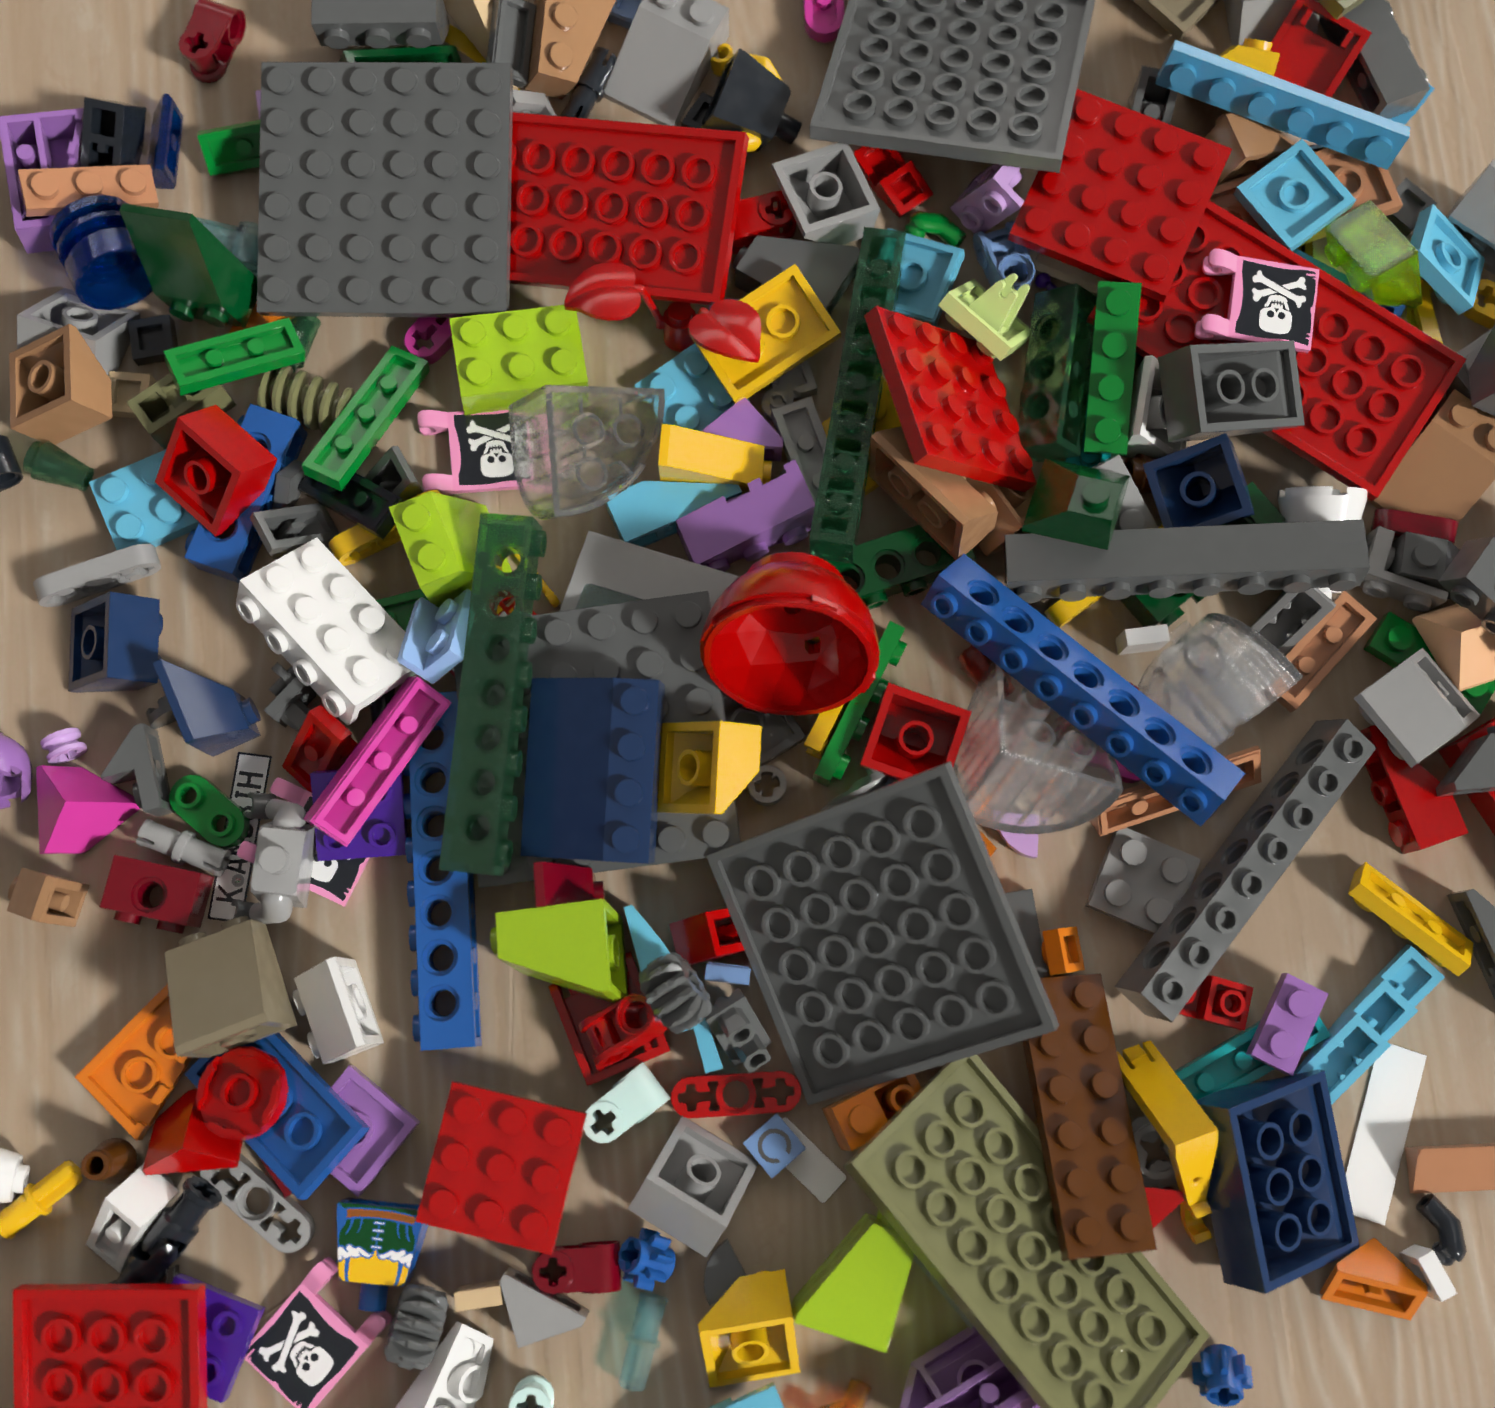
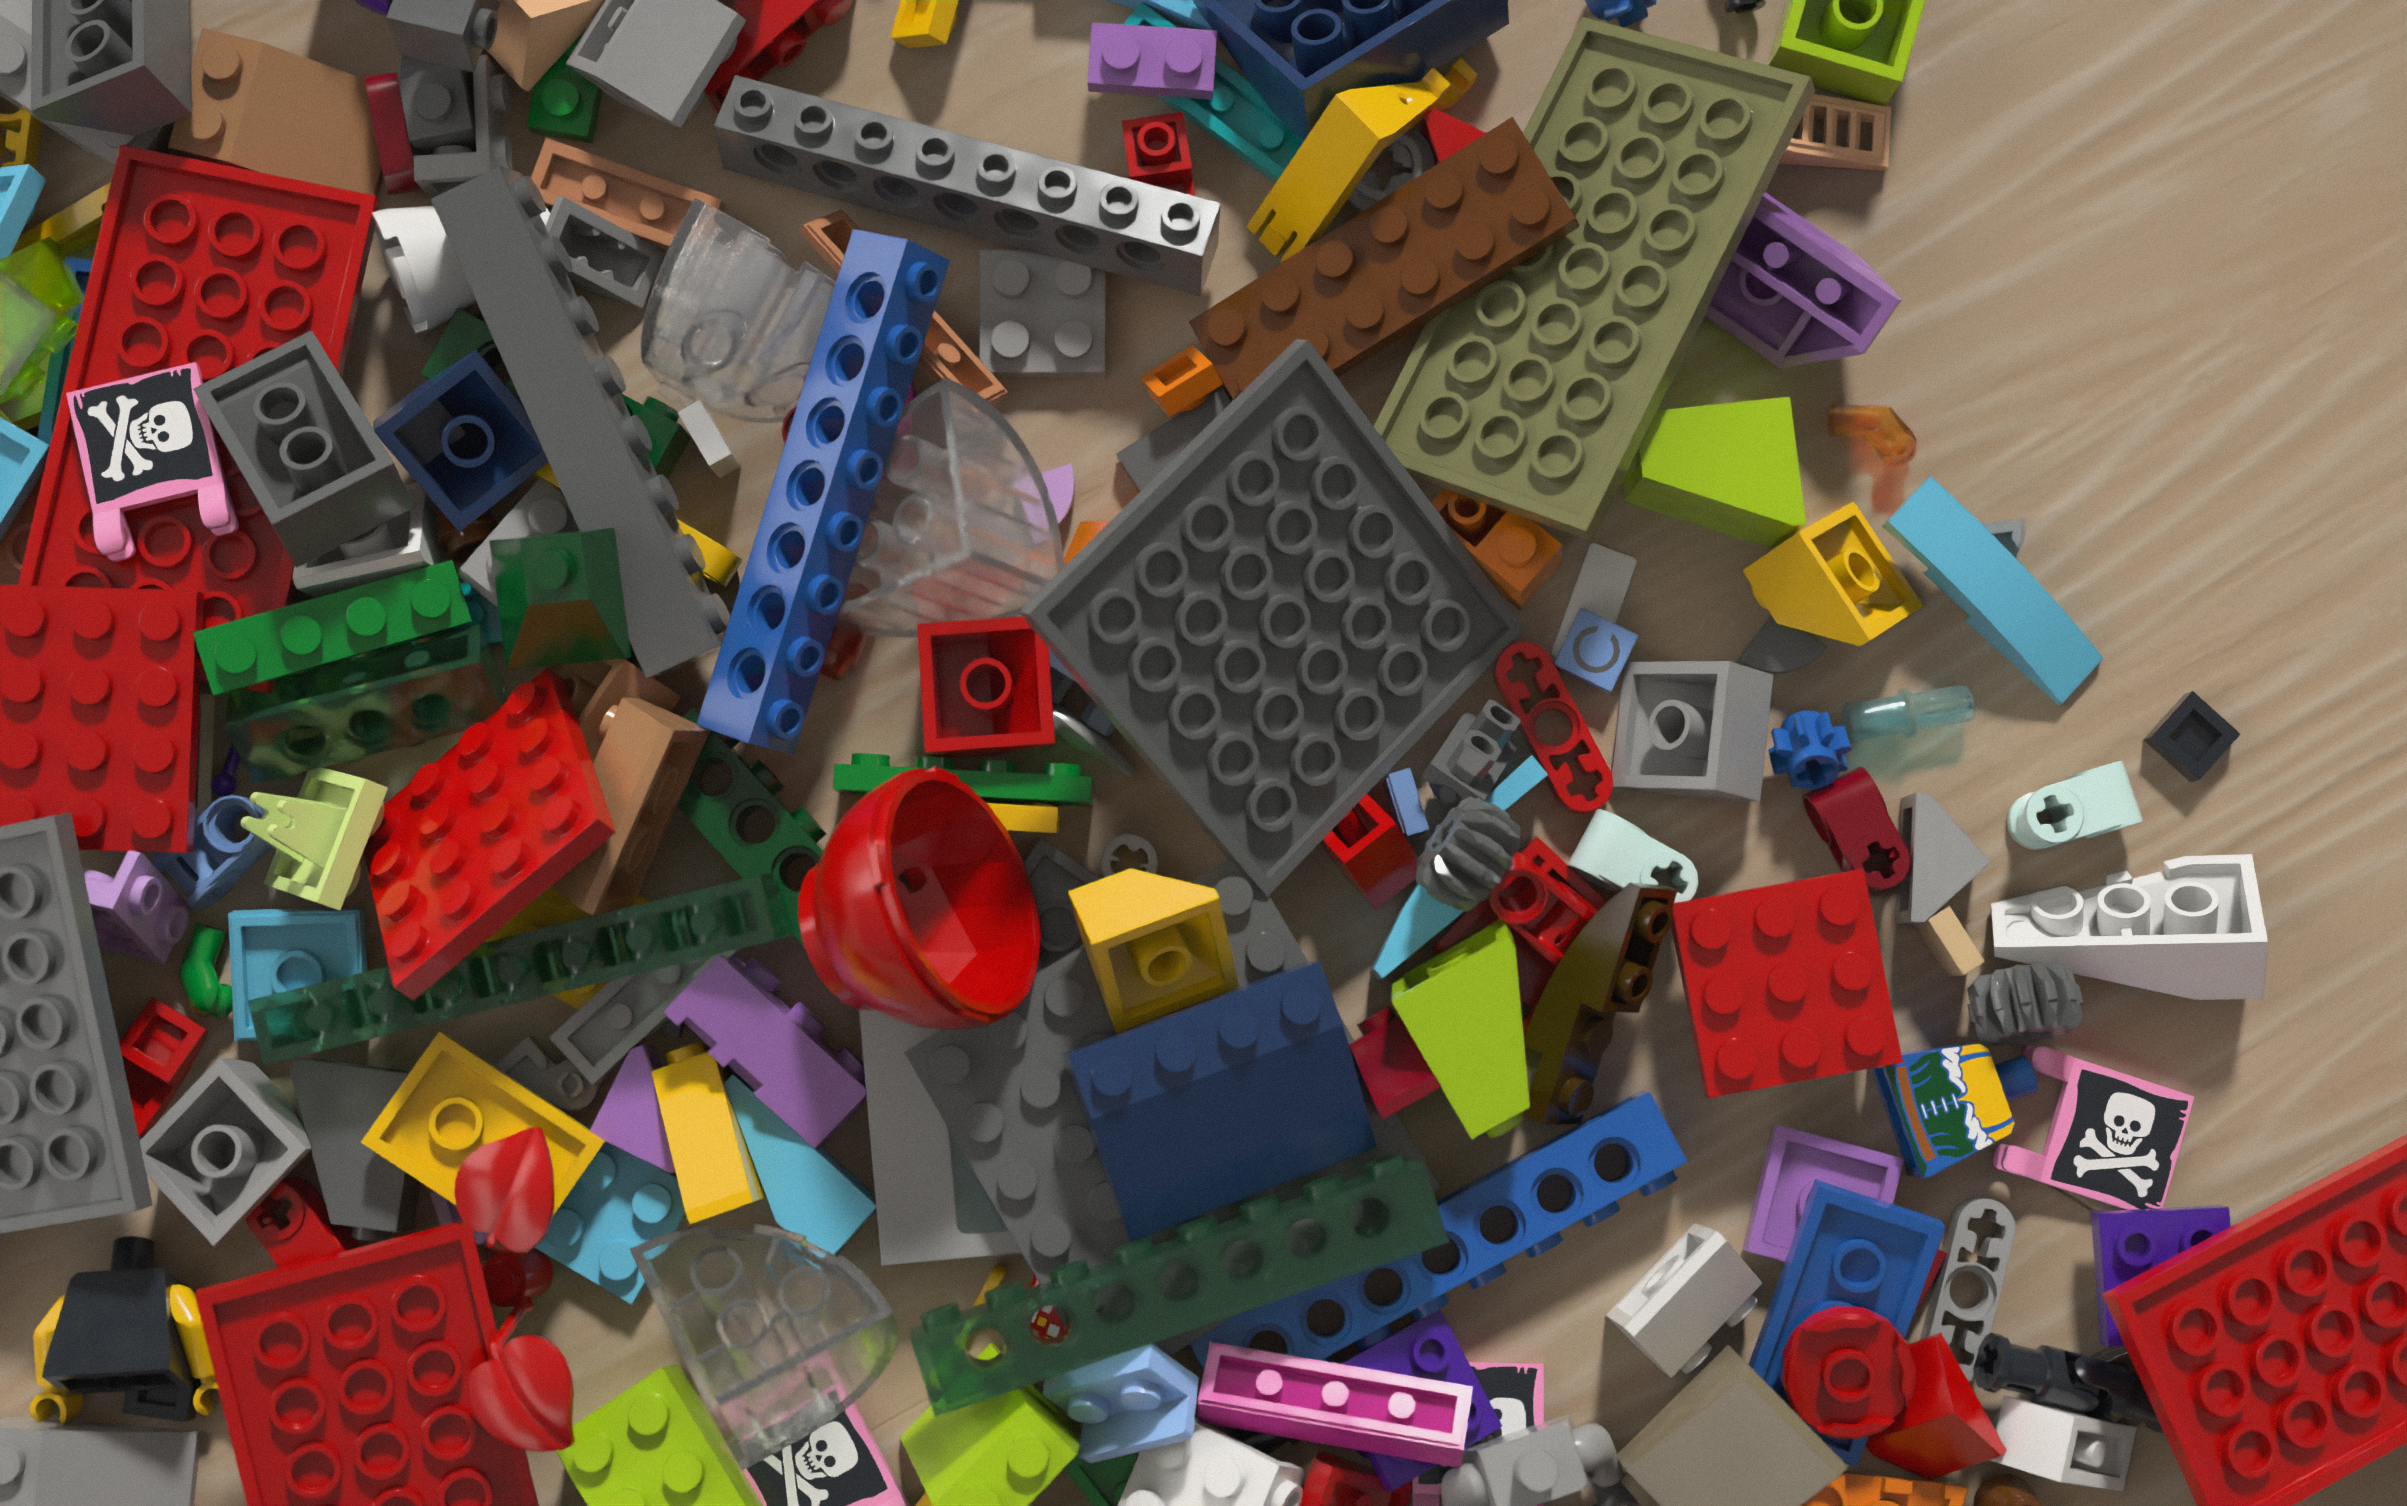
camera: 110 degrees left, 5 degrees up
(560, 1042) = (1598, 975): none -> dark brown slope

